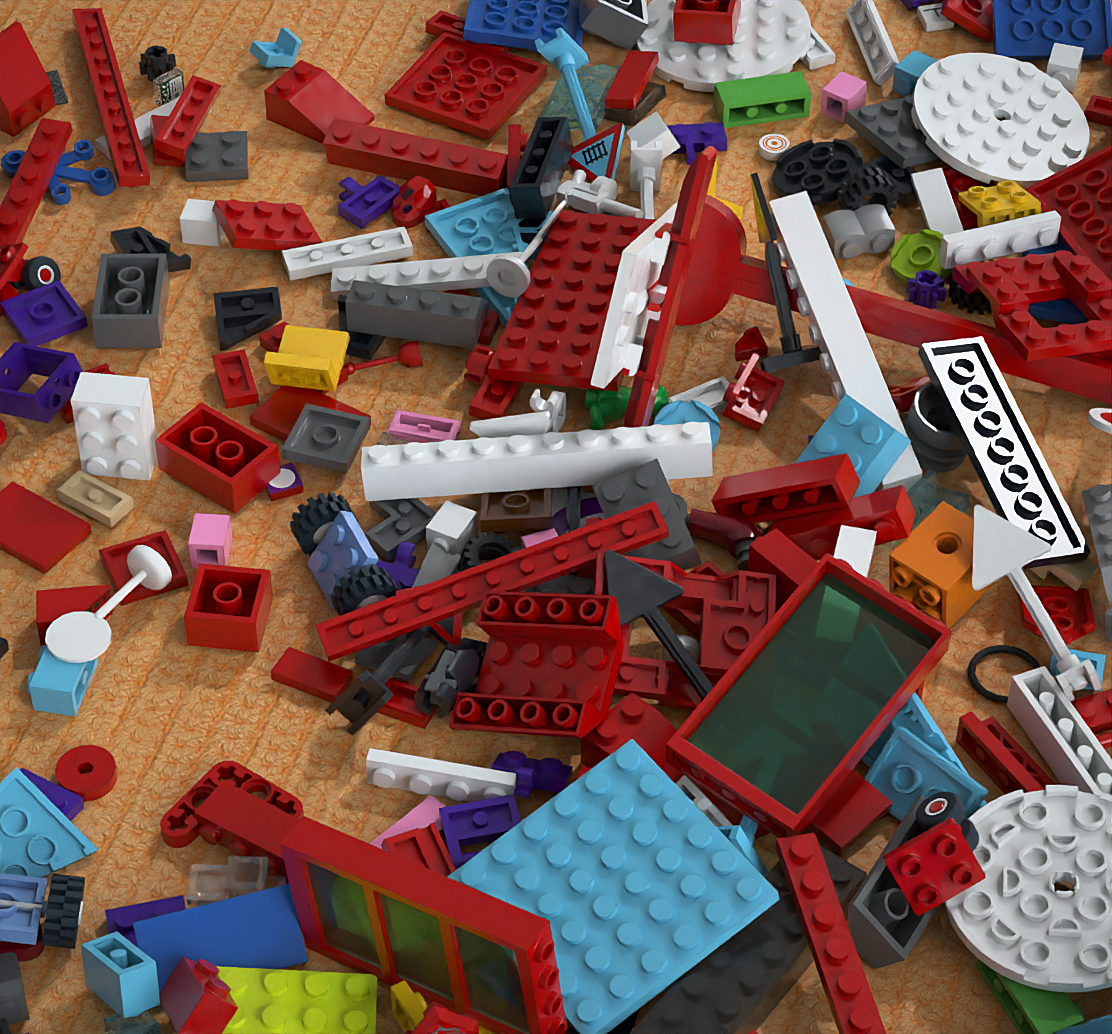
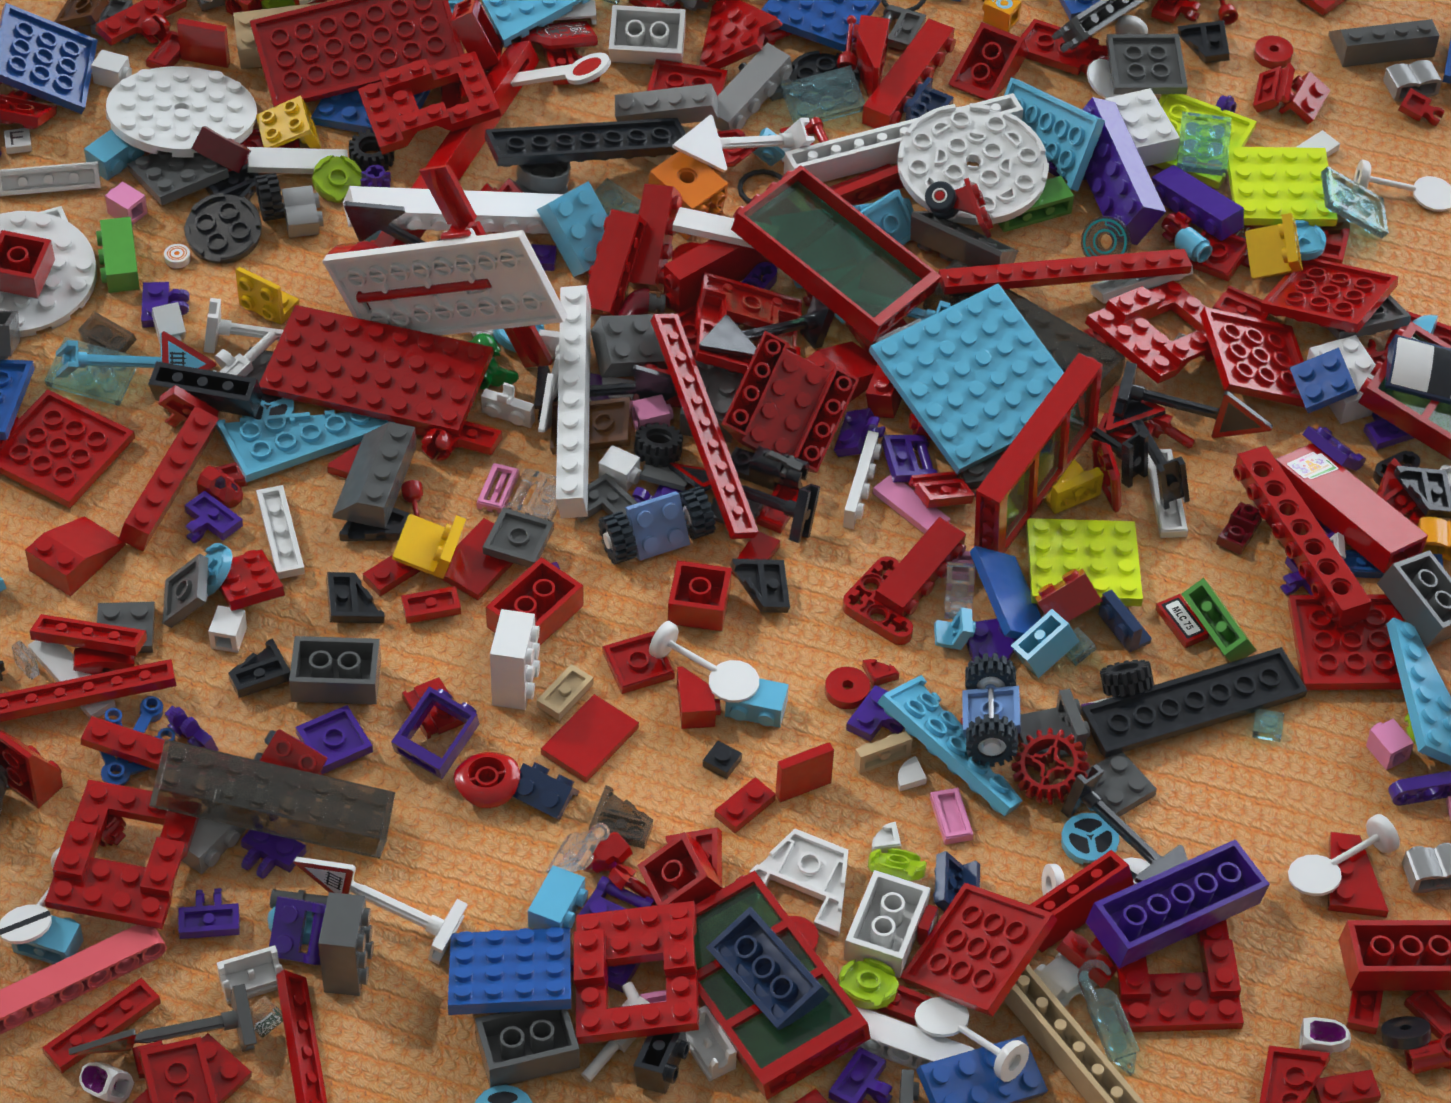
camera: 90 degrees left, 5 degrees up
(61, 205) = (189, 729): none -> dark purple hinge
(111, 807) = (879, 672): none -> red tile
(162, 879) = (957, 632): none -> medium azure bracket
(210, 539) = (619, 614): bright pink brick -> none
(254, 677) = (764, 583): none -> black wing
(260, 180) = (185, 590): none -> dark grey plate
(280, 195) = (218, 565): none -> medium azure tile
(424, 274) = (323, 476): white plate -> none
(508, 273) = (288, 391): white piece -> none
(631, 80) = (83, 329): red tile -> none
(922, 145) = (220, 149): none -> dark red slope
(999, 239) = (346, 128): white plate -> none

